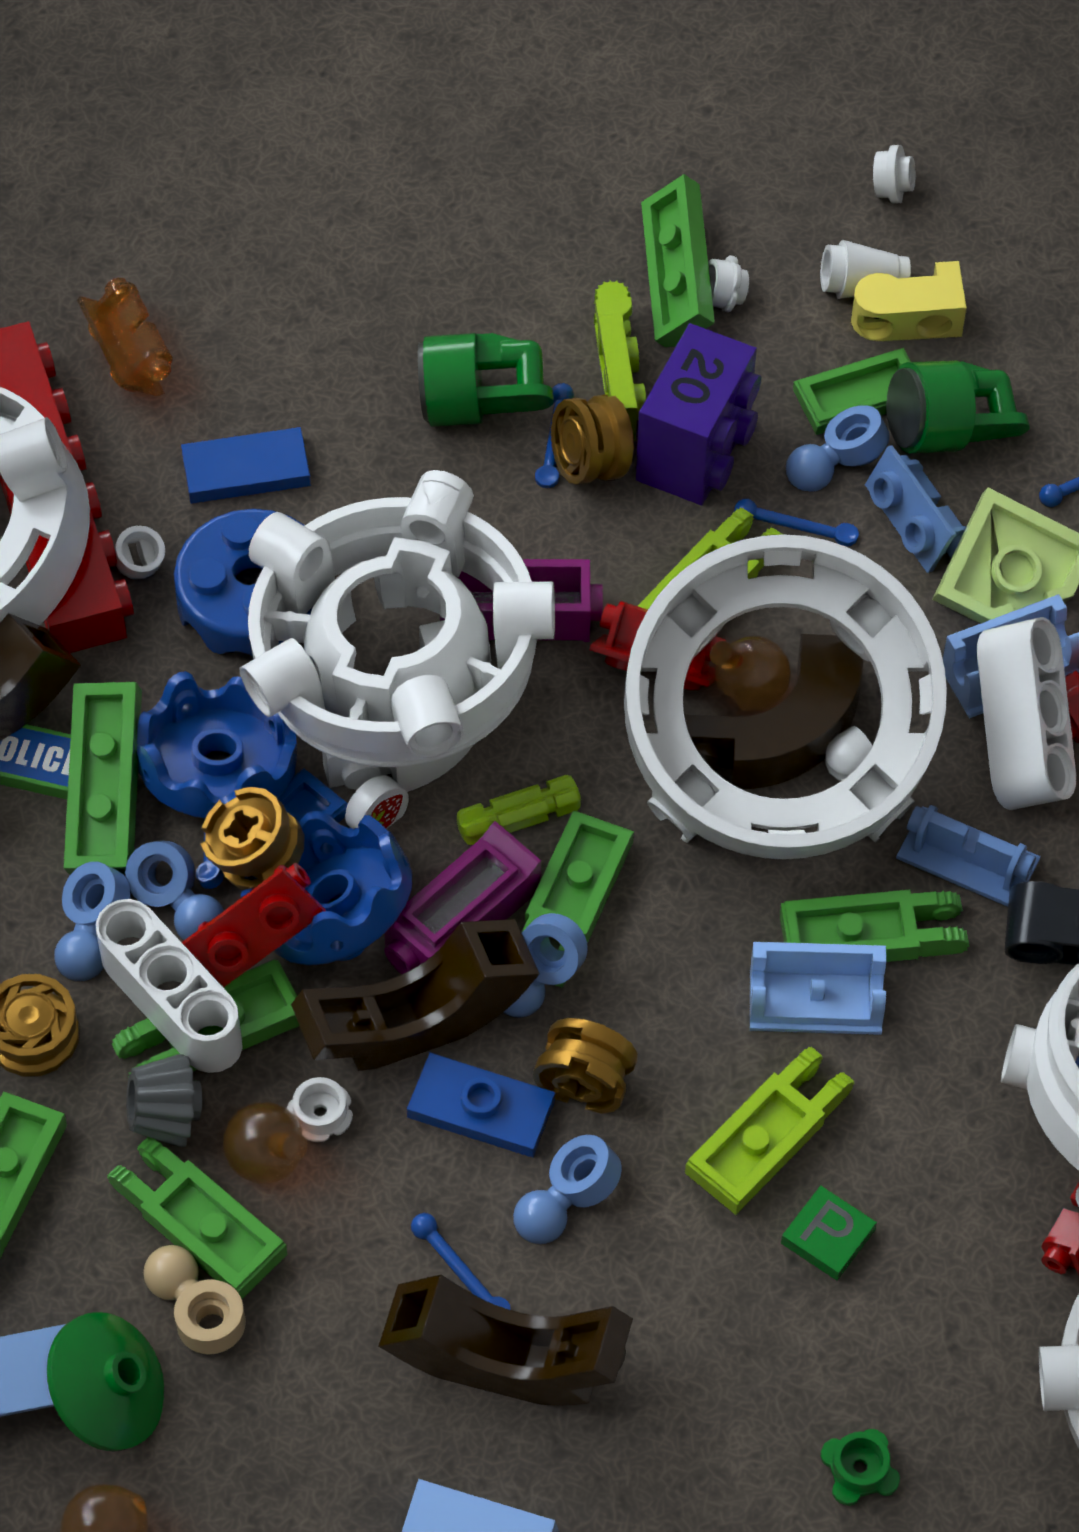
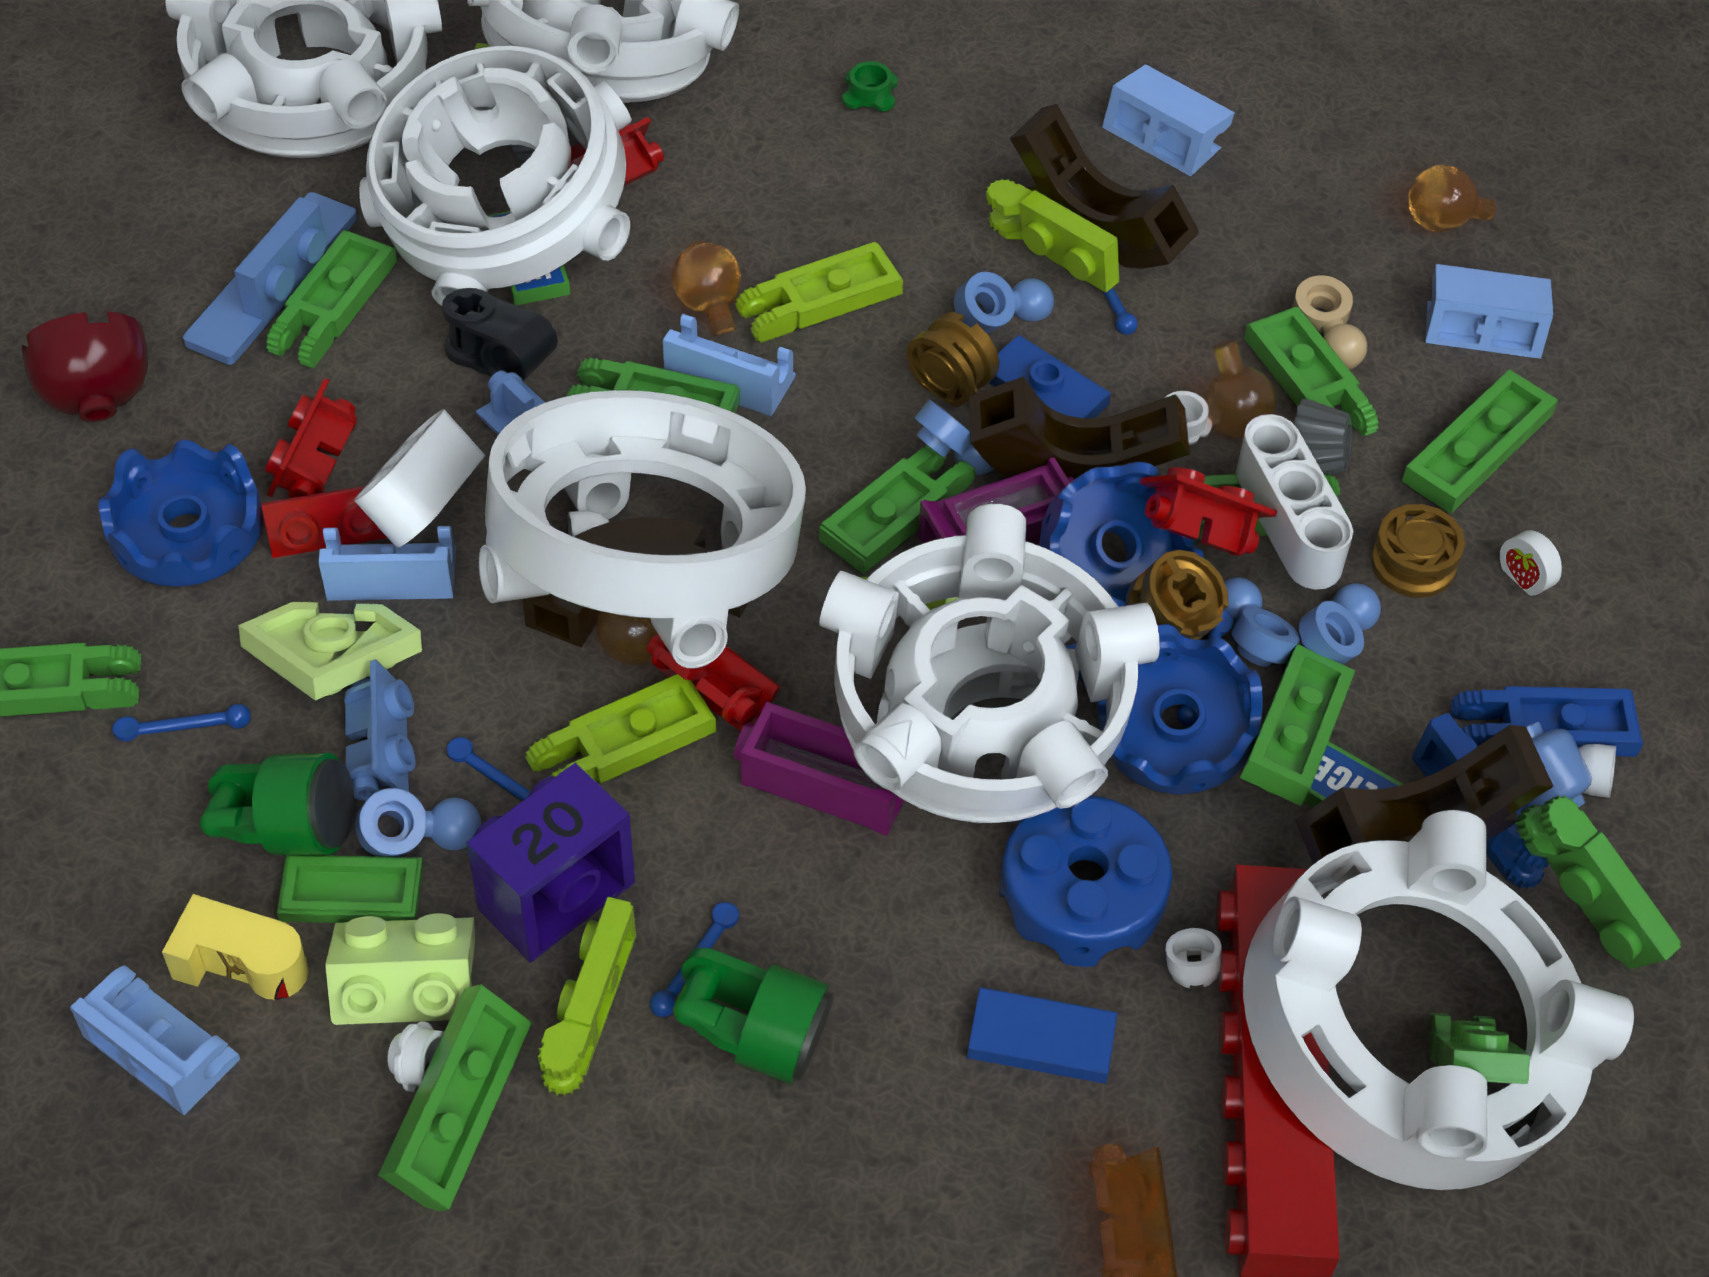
camera: 160 degrees left, 5 degrees down
(105, 1381) = (1419, 274): green dish -> none
(538, 1288) = (1054, 232): none -> lime hinge
(592, 439) = (669, 894): pearl gold wheel -> none
(792, 338) = (399, 968): none -> yellowish green bracket
(828, 1233) = (812, 222): green tile -> none
(850, 262) = (262, 1015): white cone -> none
(891, 1079) = (707, 282): none -> clear orange piece
(893, 173) = (144, 1123): white plate -> none
(930, 223) = (152, 1039): none -> light blue hinge

